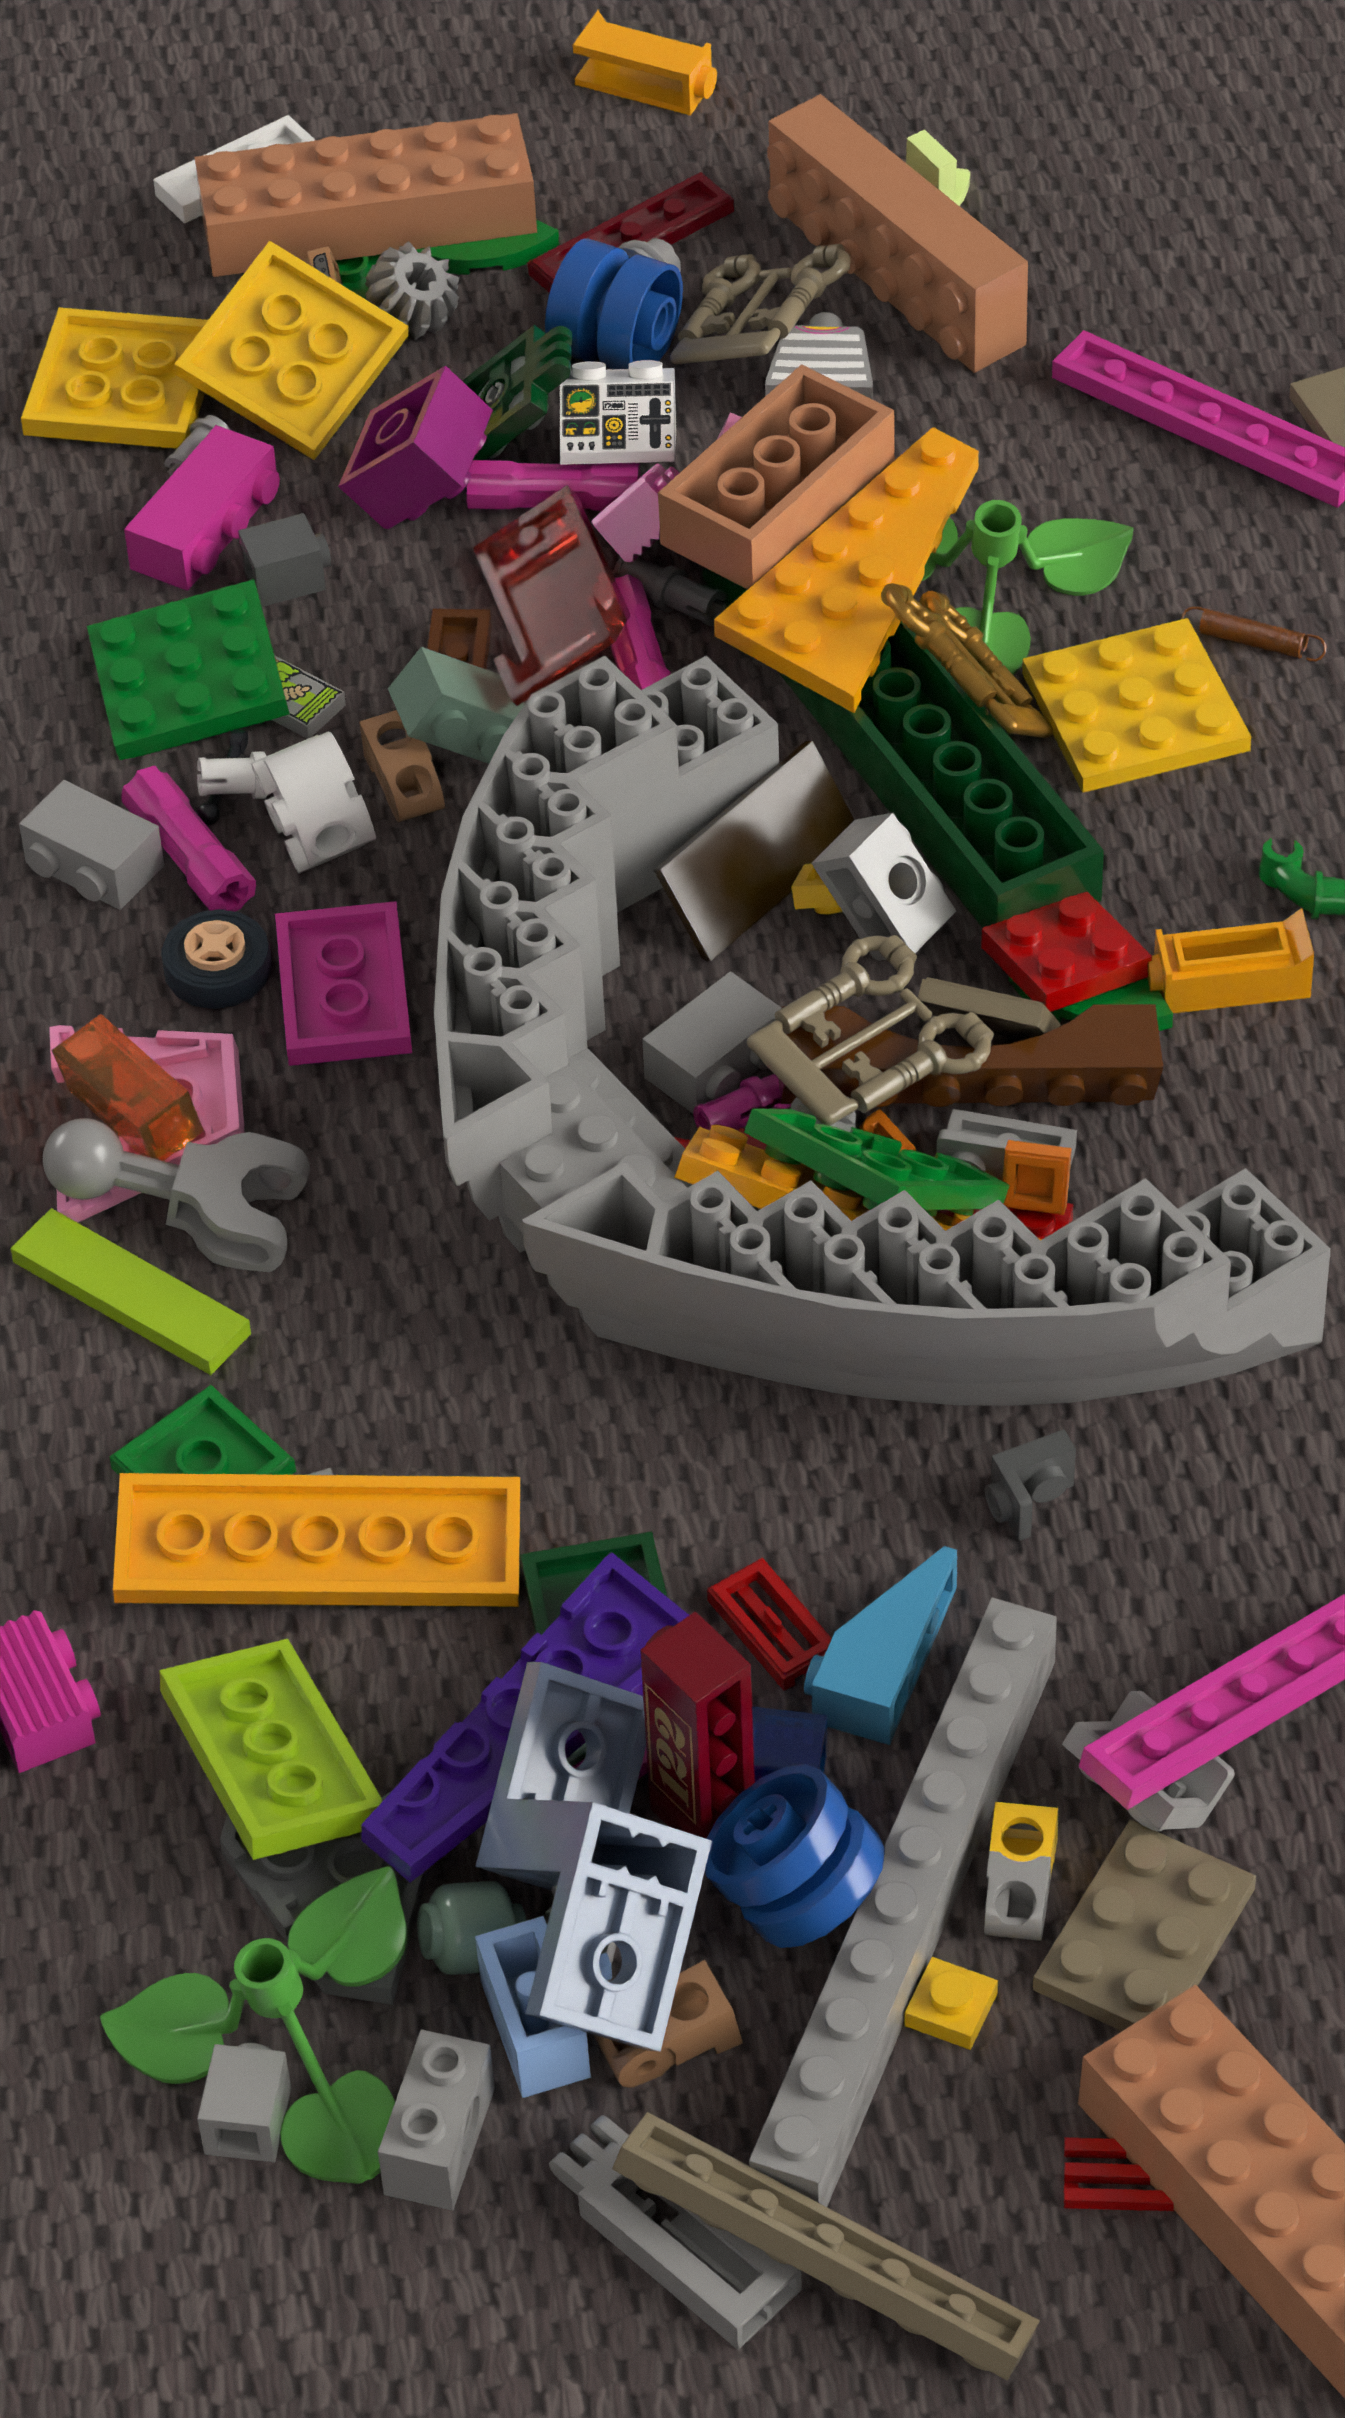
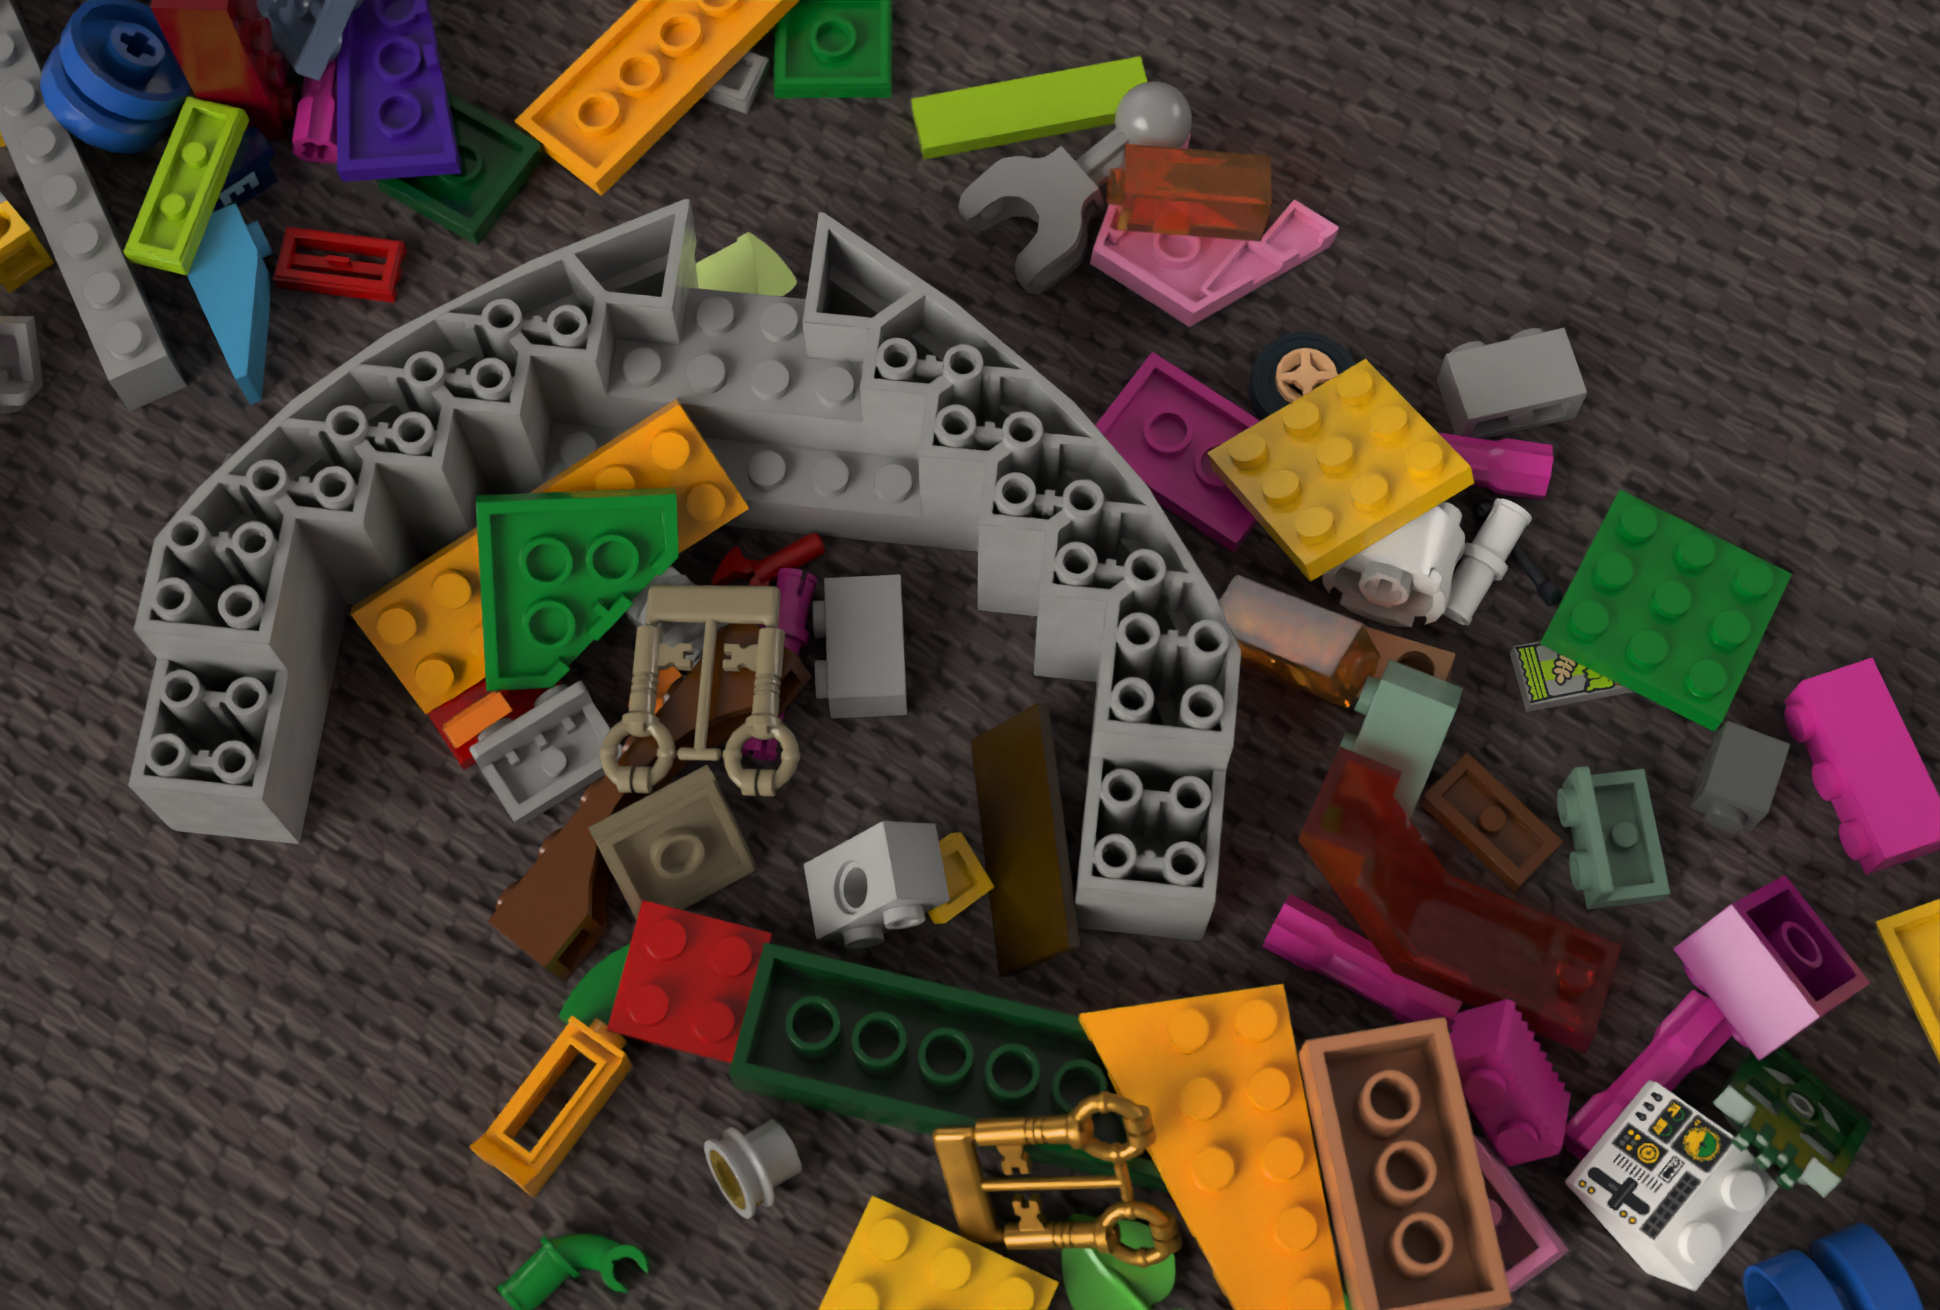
camera: 130 degrees right, 20 degrees up
(289, 841) = (1340, 469): none -> yellow plate
(400, 593) = (1613, 838): none -> sand green bracket
(442, 789) = (1299, 641): none -> brick
(503, 1340) = (746, 268): none -> yellowish green tile
(845, 1713) = (186, 186): none -> lime tile
(1141, 838) = (752, 1165): none -> light grey piece

